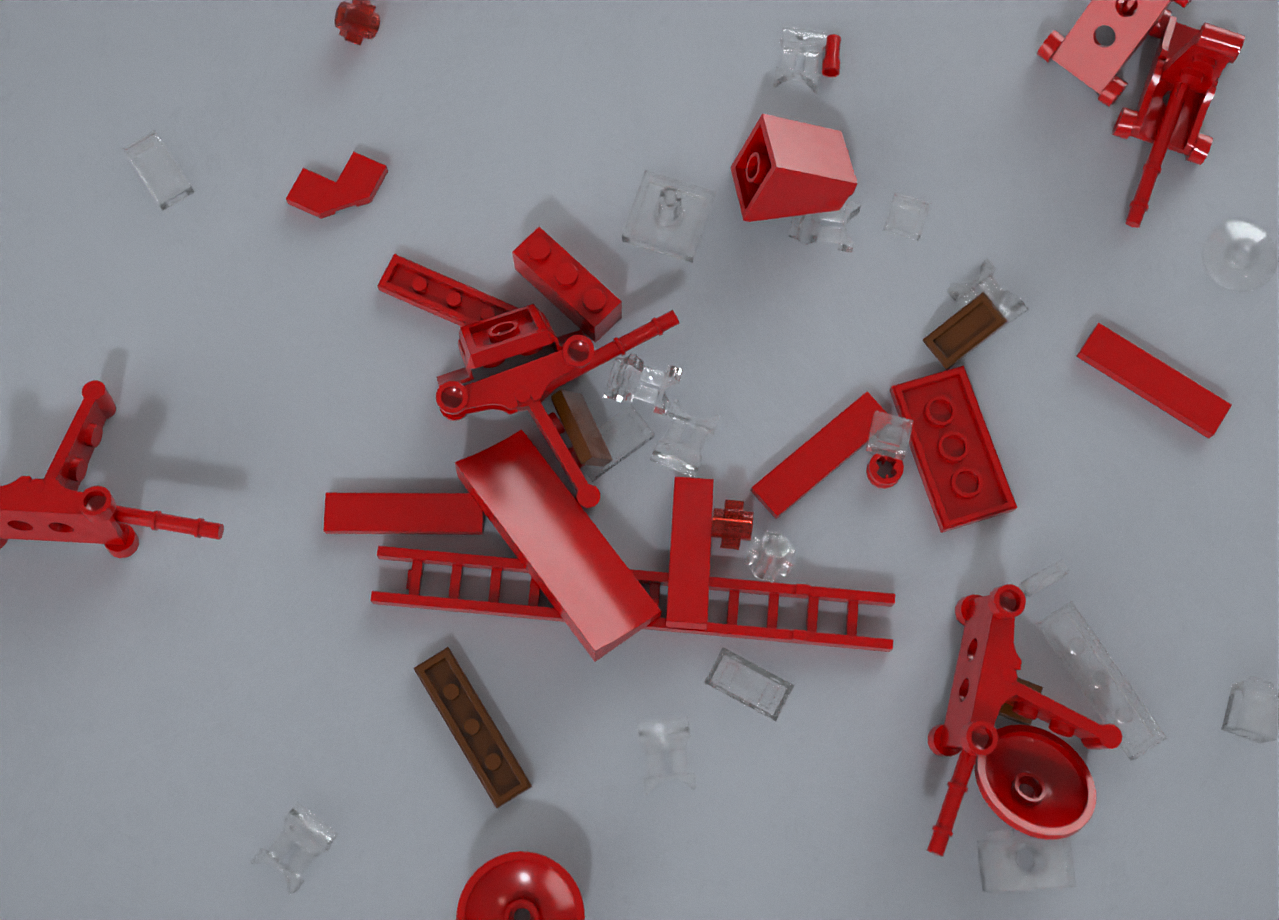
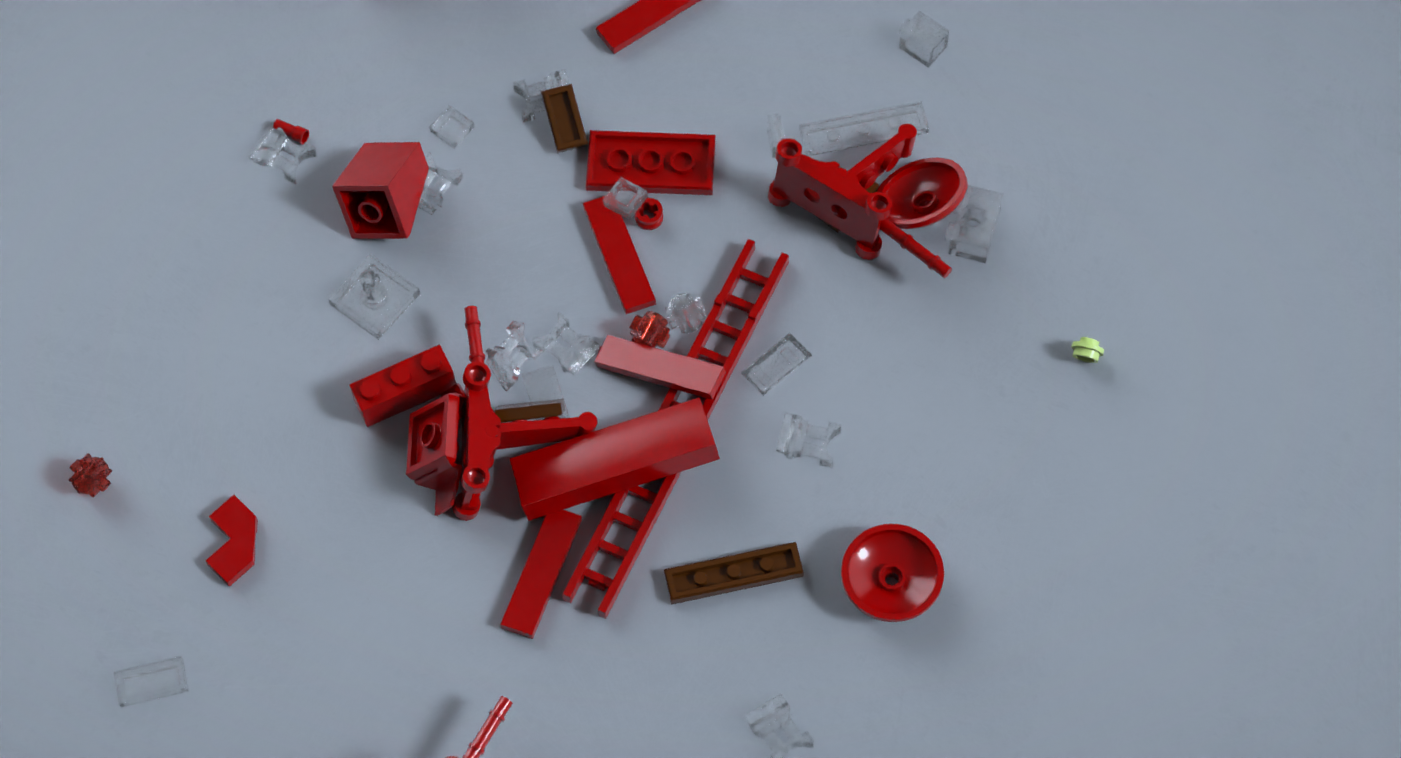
camera: 65 degrees left, 10 degrees down
(439, 293) = (366, 487): red tile -> none

